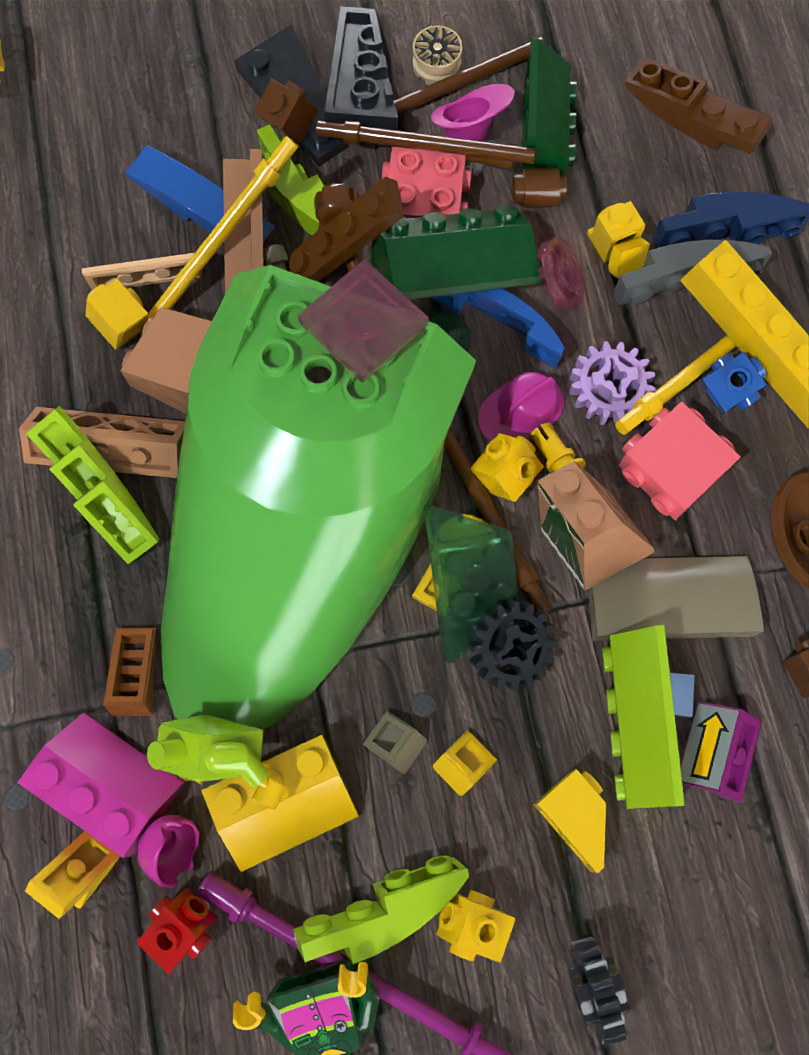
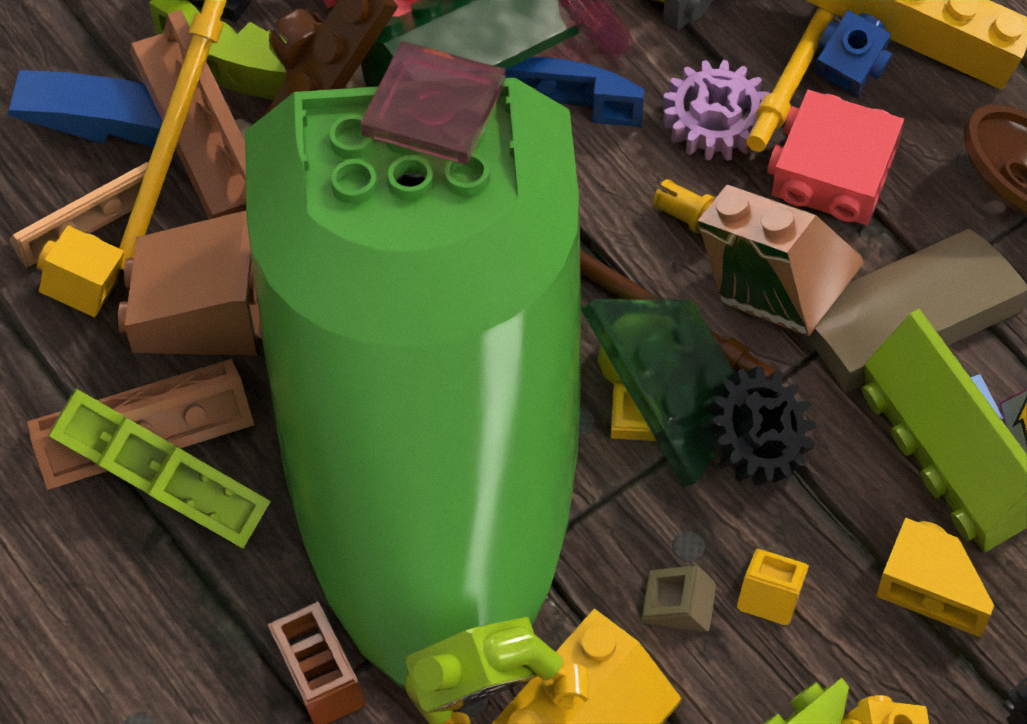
camera: 25 degrees left, 15 degrees down
(507, 466) = (647, 243): yellow brick -> none
(521, 406) = (623, 181): dark pink piece -> none

